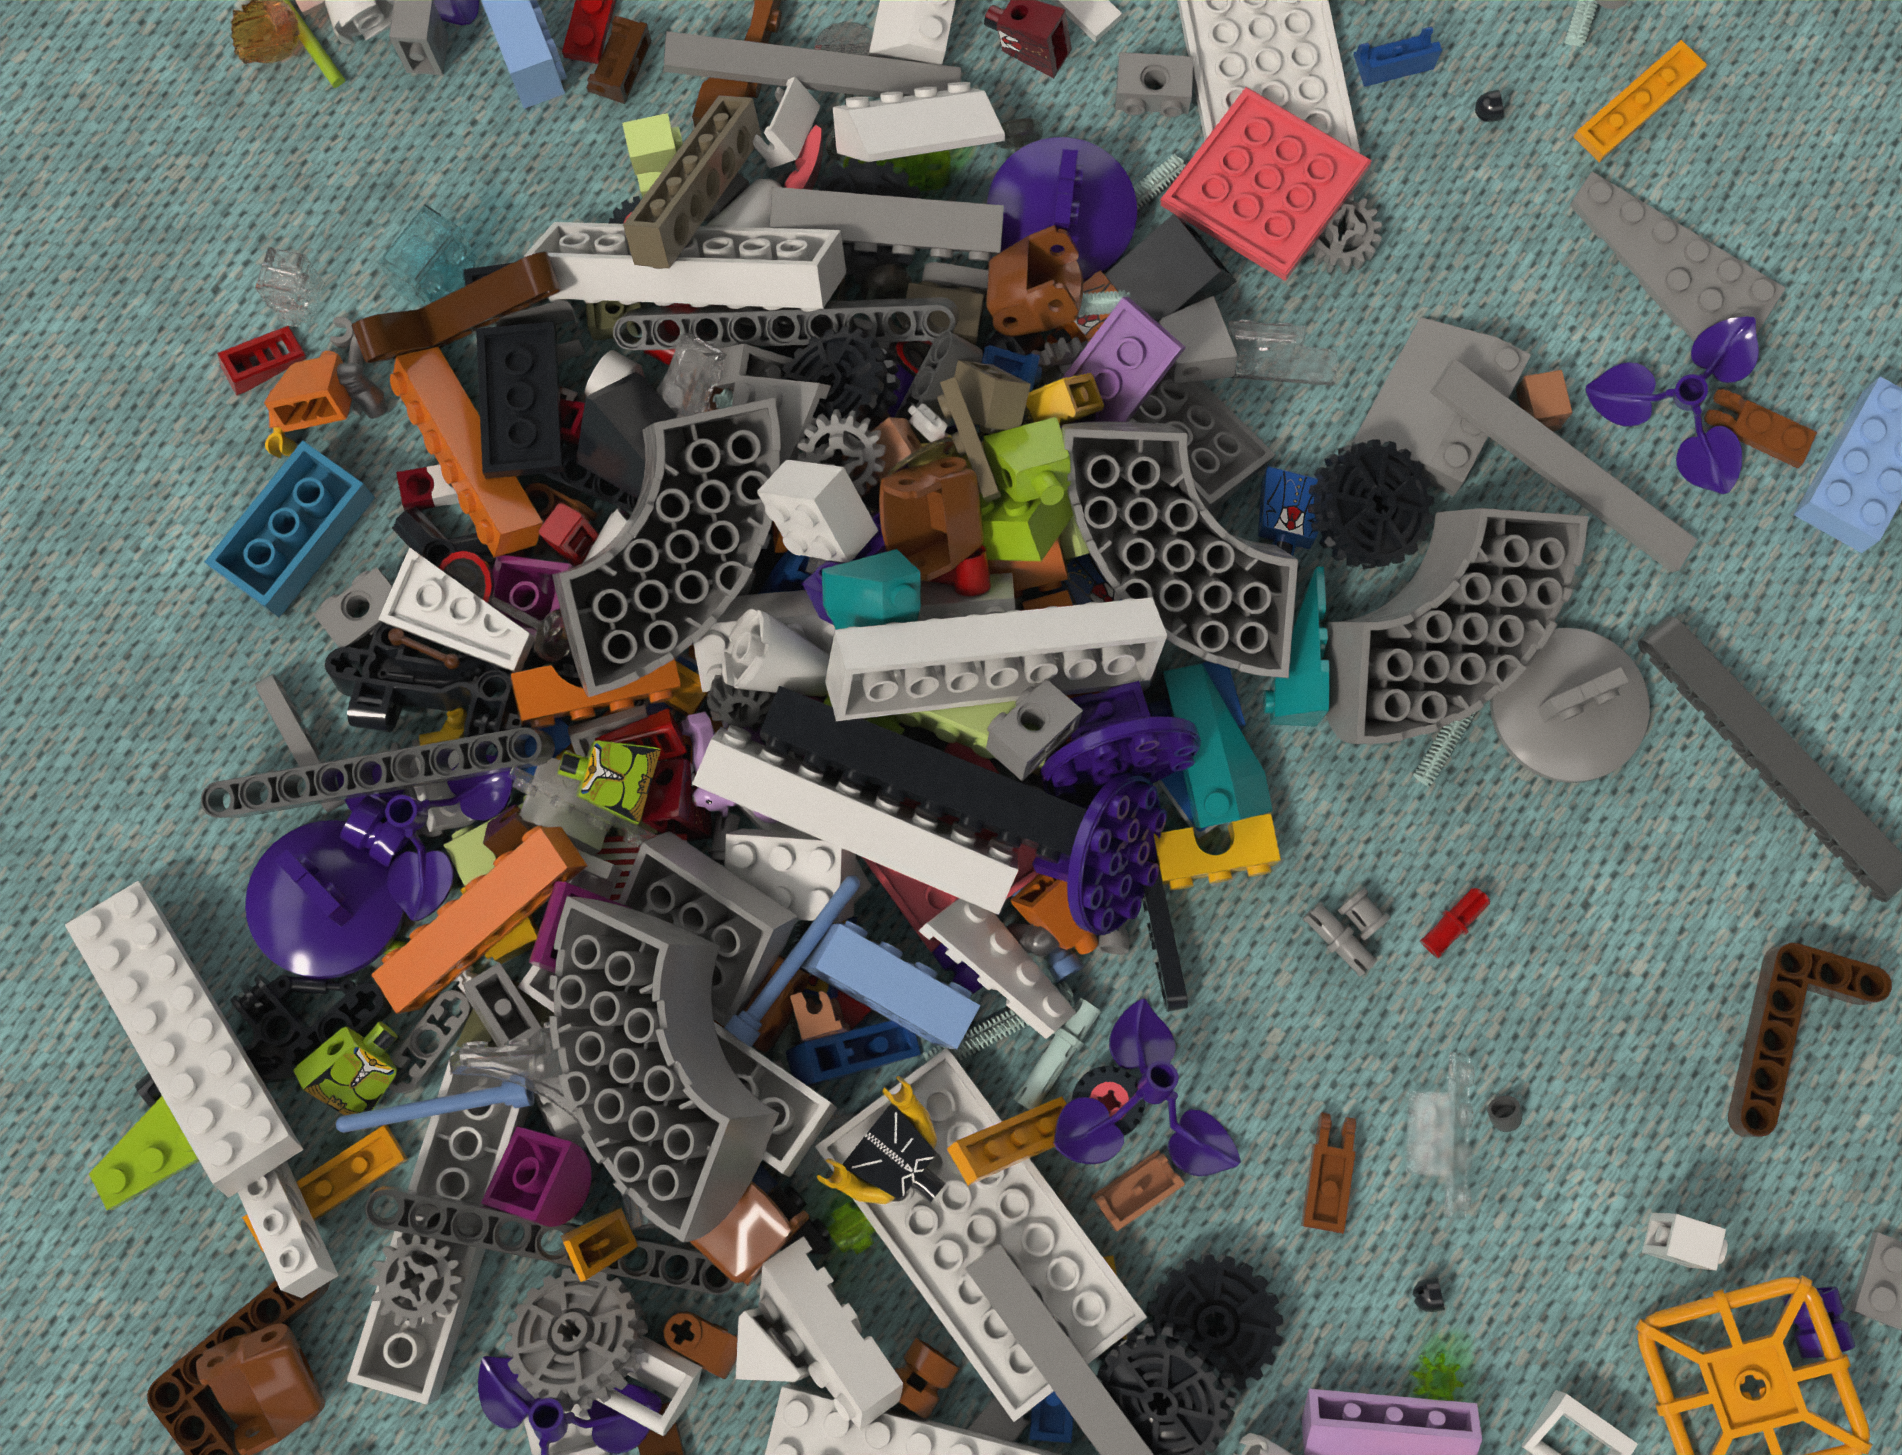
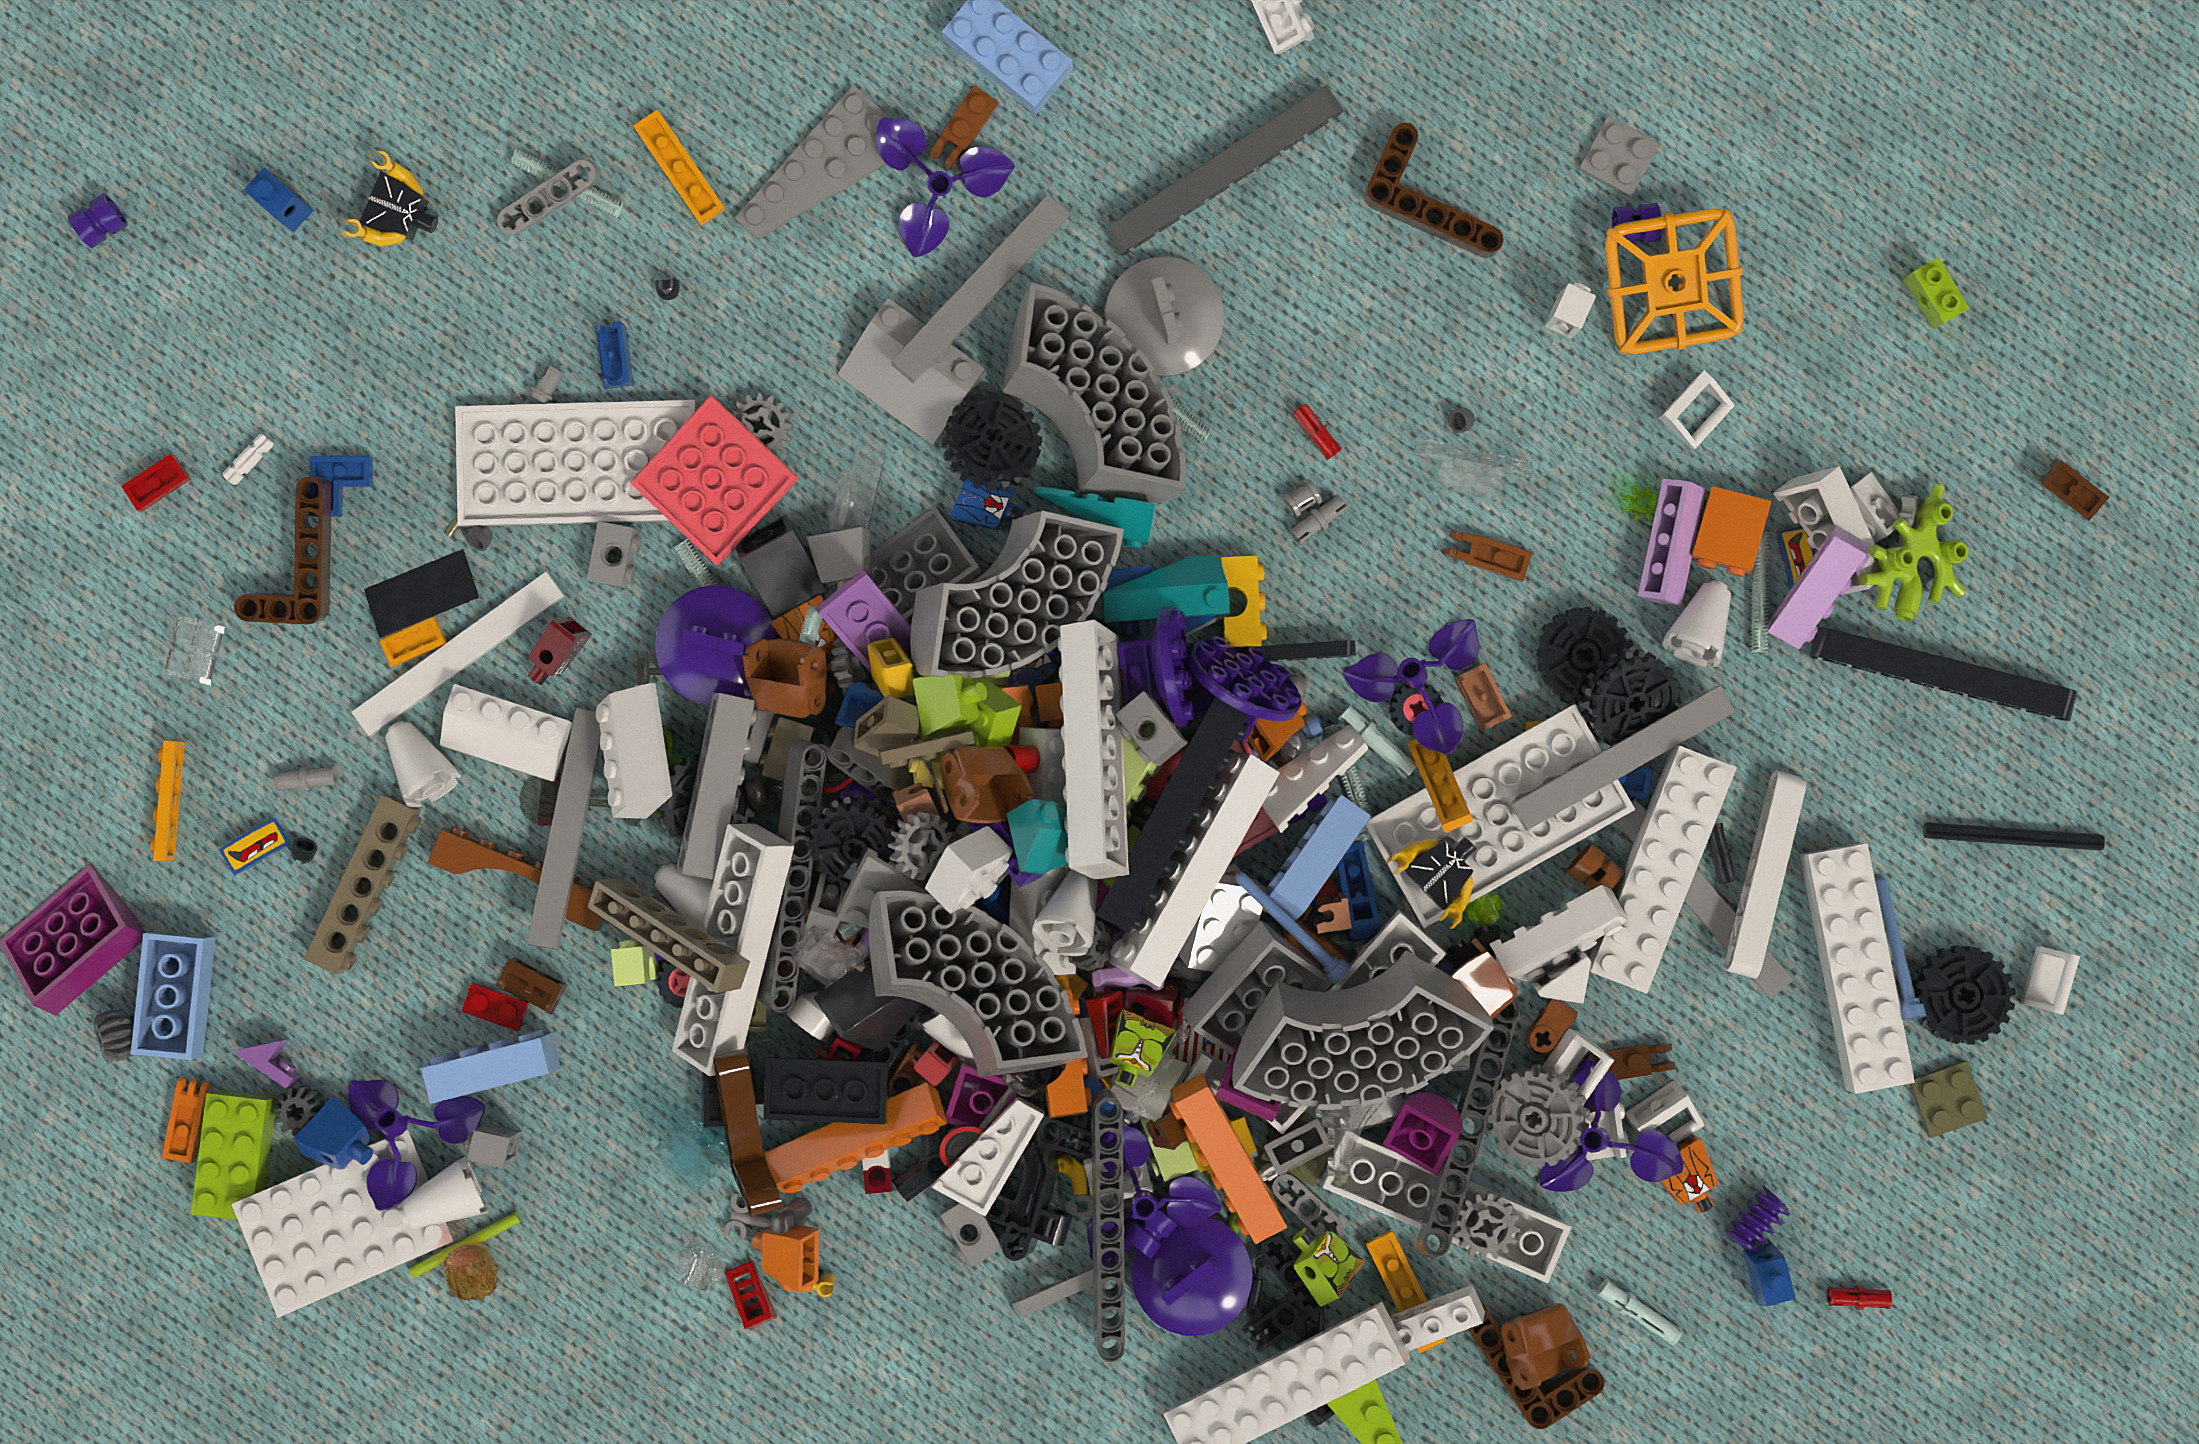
camera: 80 degrees left, 10 degrees up
(290, 529) = (899, 1281): dark azure brick -> none
(398, 637) = (1000, 1203): reddish brown hinge -> none
(508, 1093) = (1362, 1202): medium blue piece -> none
(599, 1243) = (1478, 1091): light orange slope -> none
(789, 125) = (614, 852): white hinge -> none
(807, 162) = (640, 841): coral slope -> none
(928, 422) = (905, 776): white axle -> none
(1428, 1295) = (1582, 497): black hinge -> none
(1545, 398) = (922, 291): nougat brick -> none

